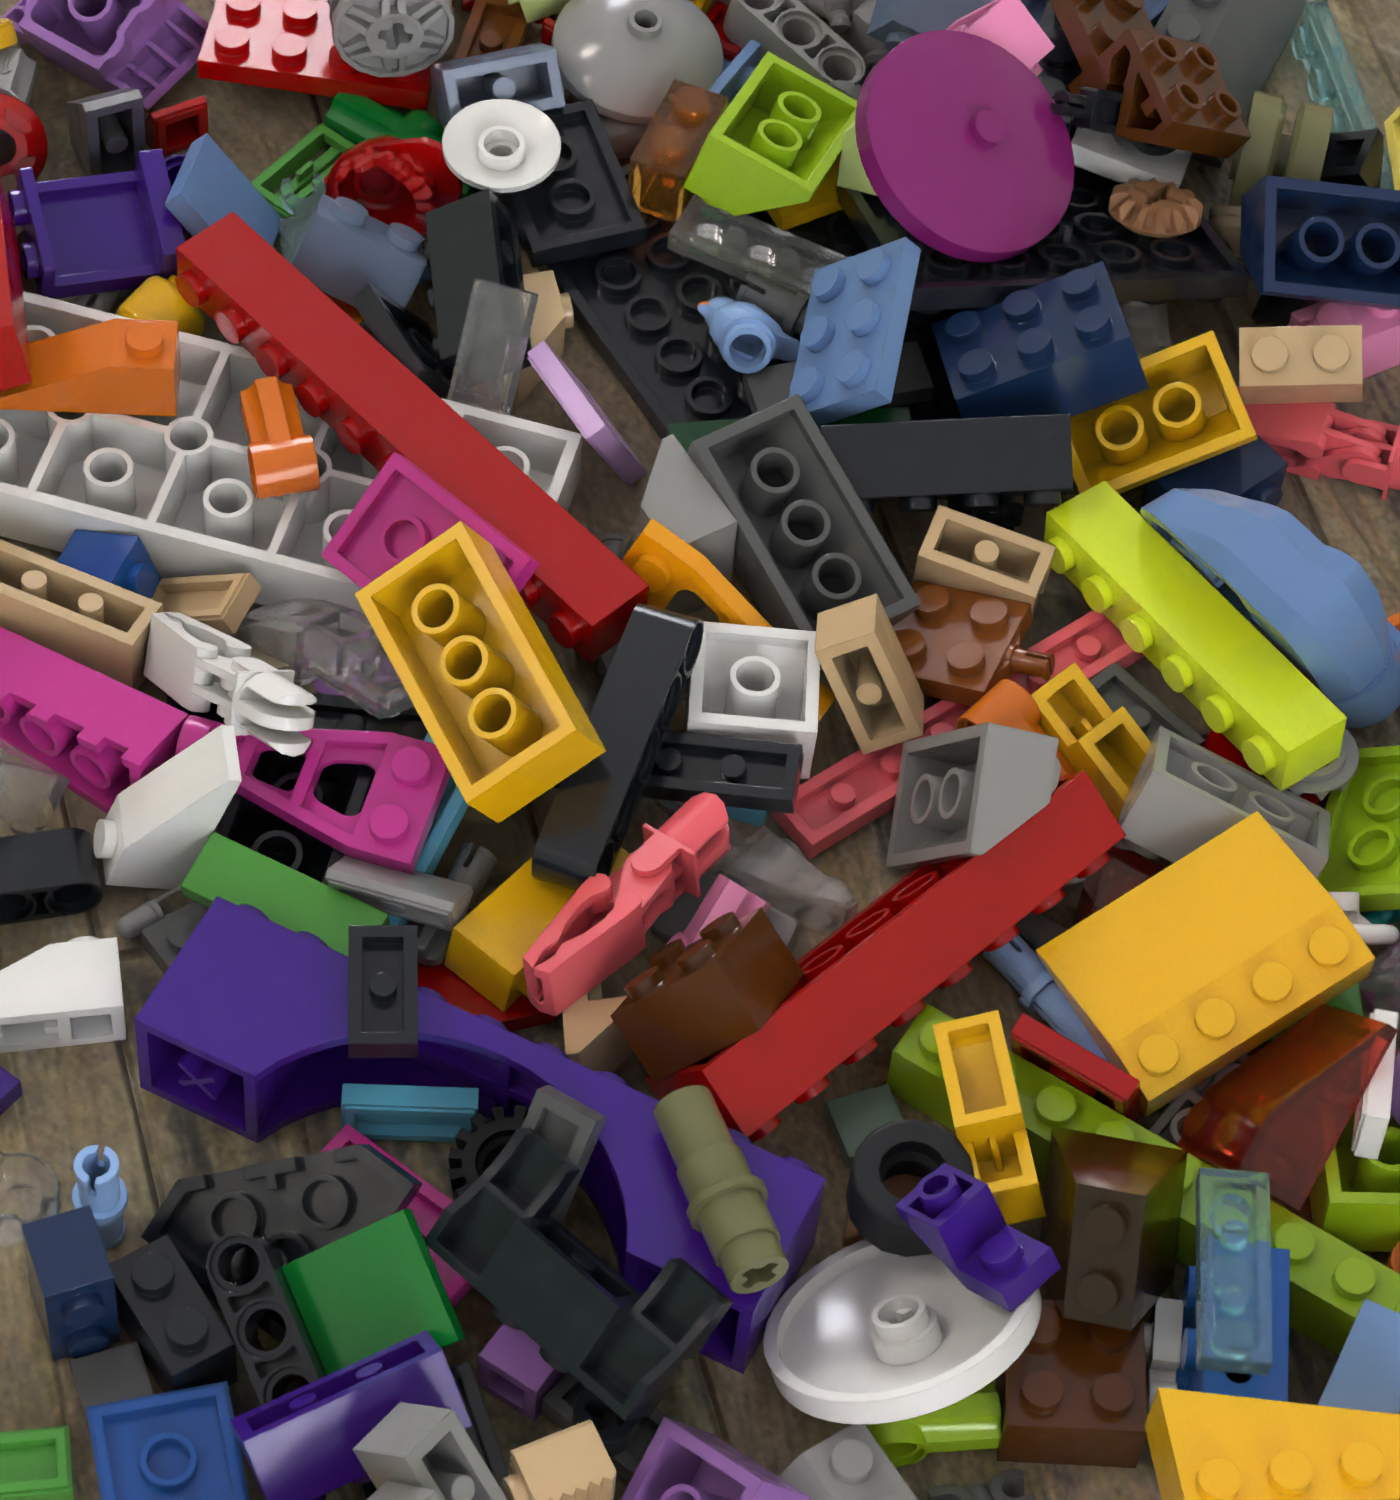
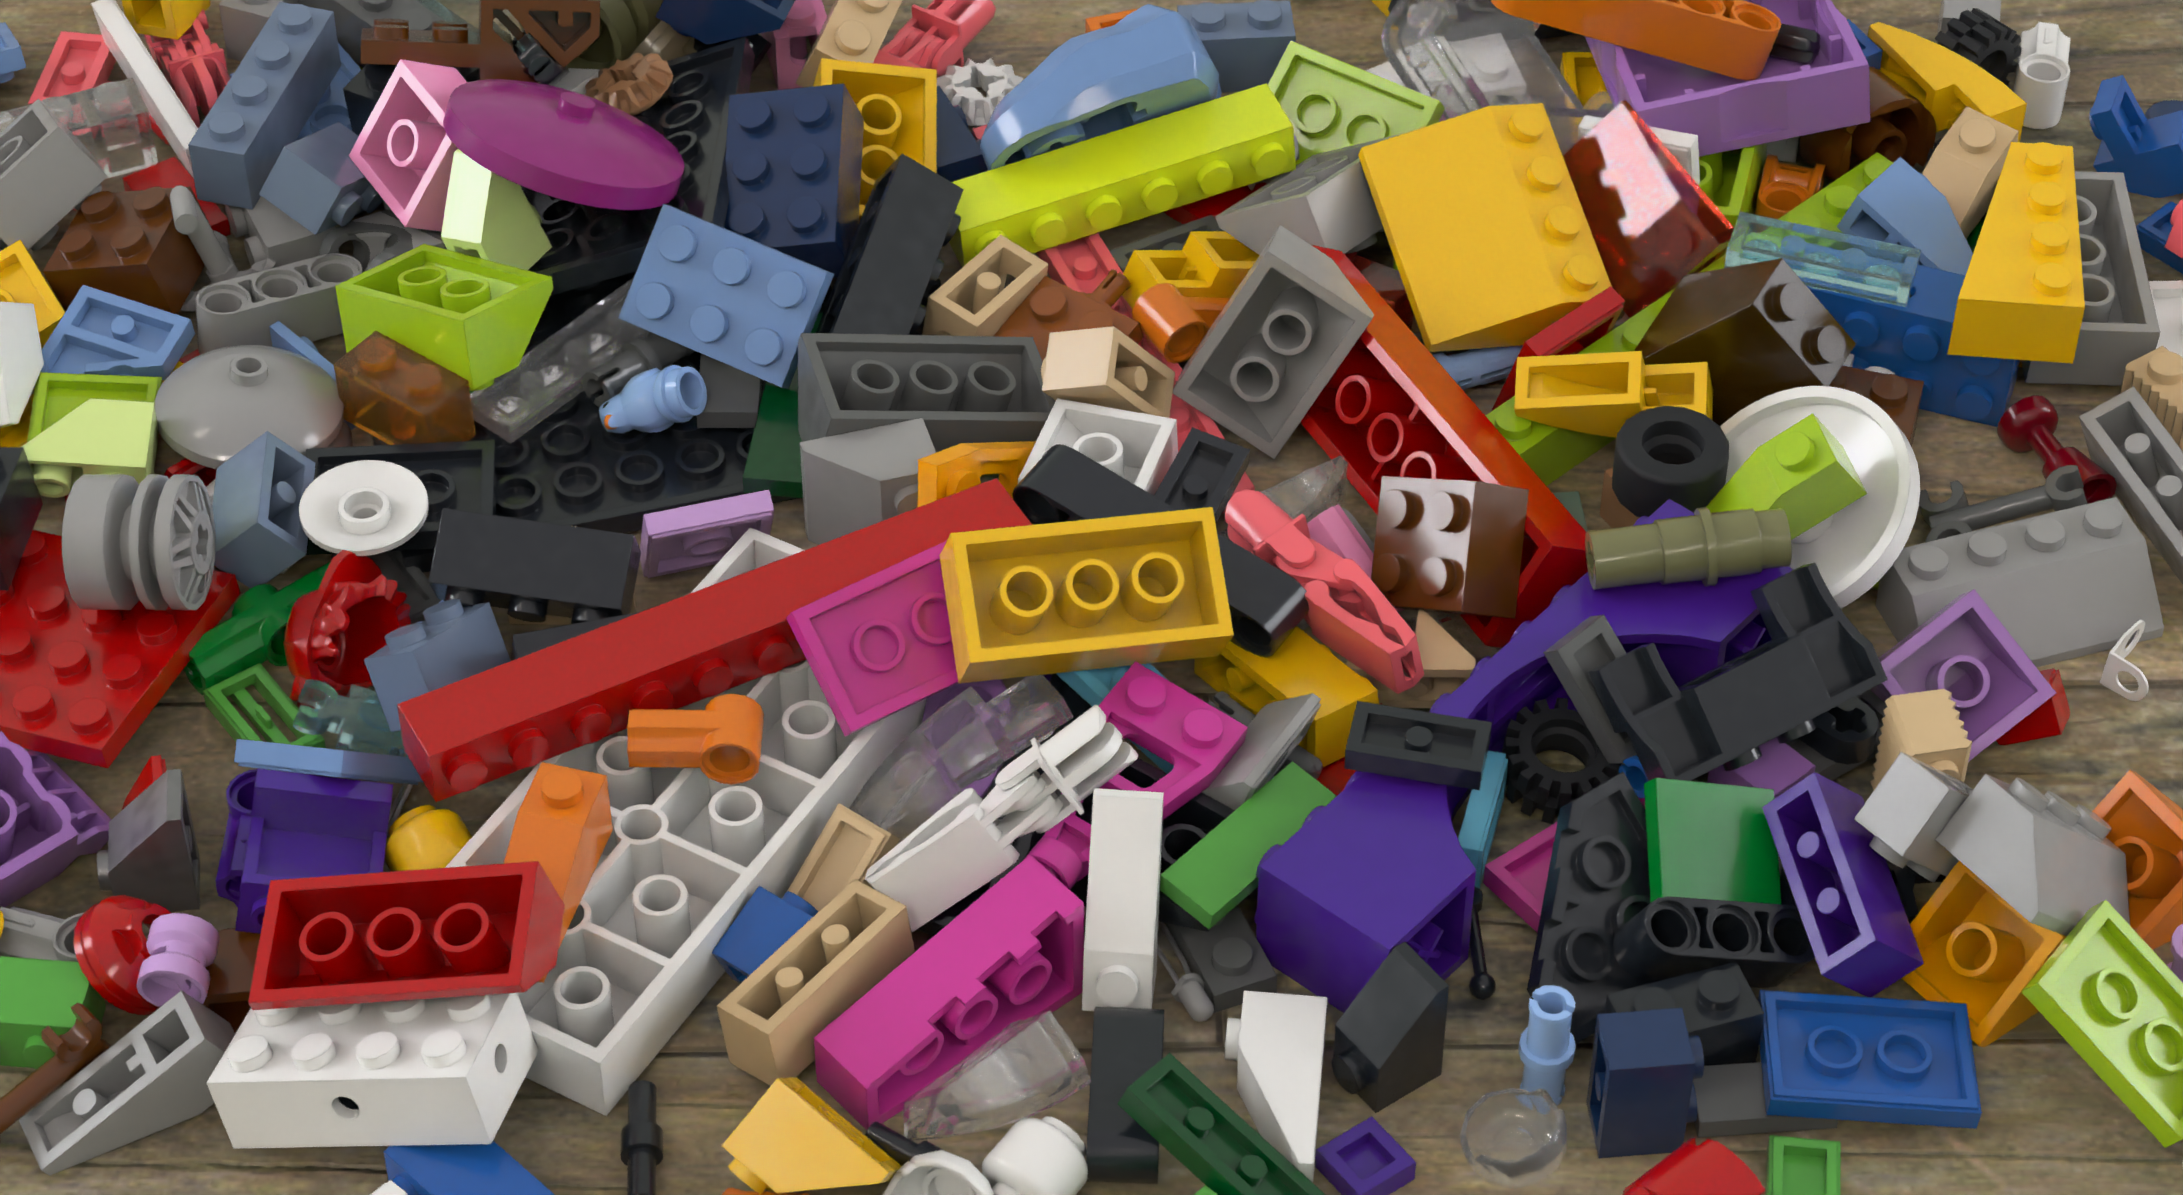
camera: 70 degrees left, 10 degrees down
(101, 1073) = (1392, 1031): none -> black slope
(217, 1155) = (1481, 984): none -> black hinge
(492, 346) = (642, 545): clear tile -> none
(880, 1293) = (1794, 471): none -> lime slope
(971, 1238) = (1741, 421): dark purple slope -> none
(1362, 522) = (961, 83): none -> white gear

